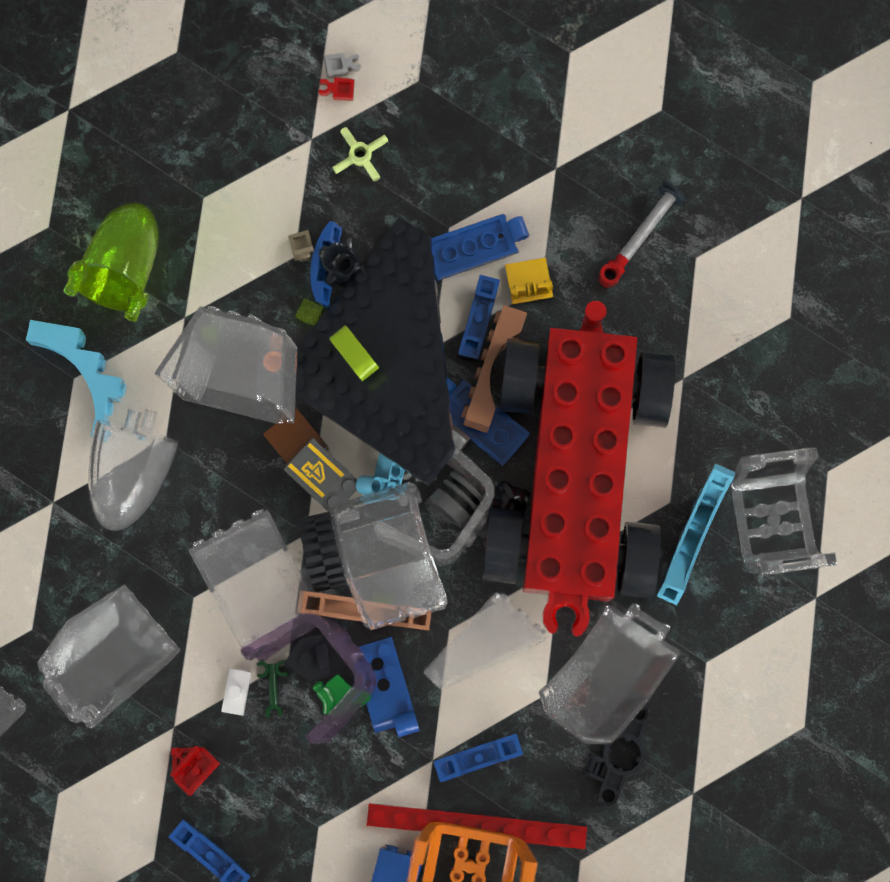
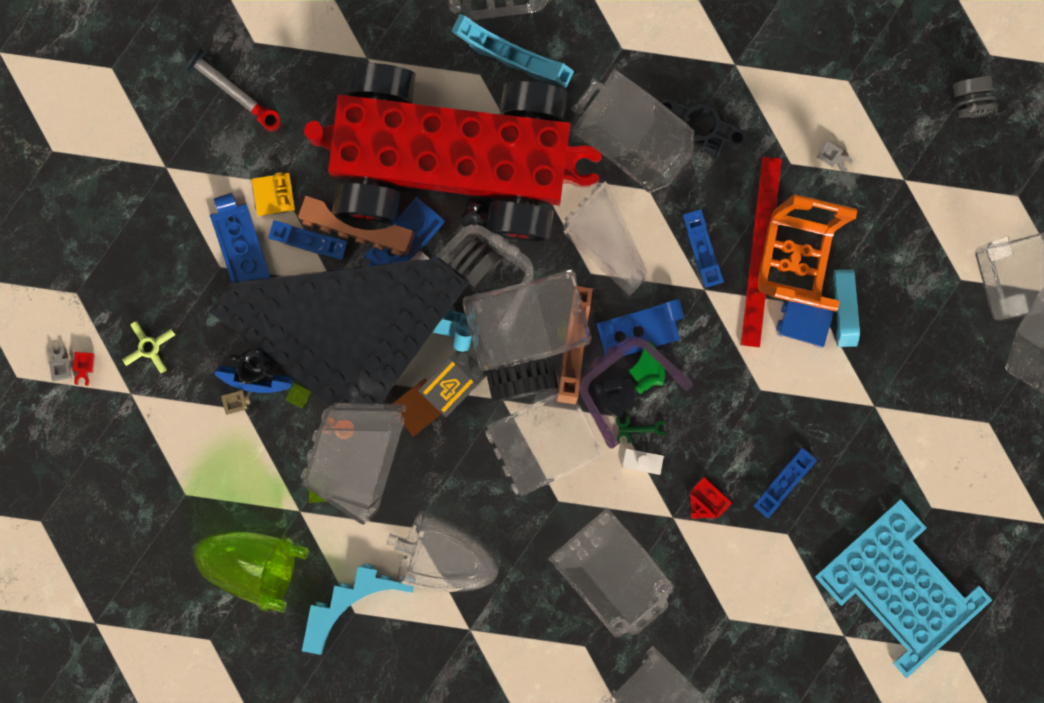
camera: 90 degrees left, 5 degrees up
(354, 353) = (343, 350): lime beam -> none

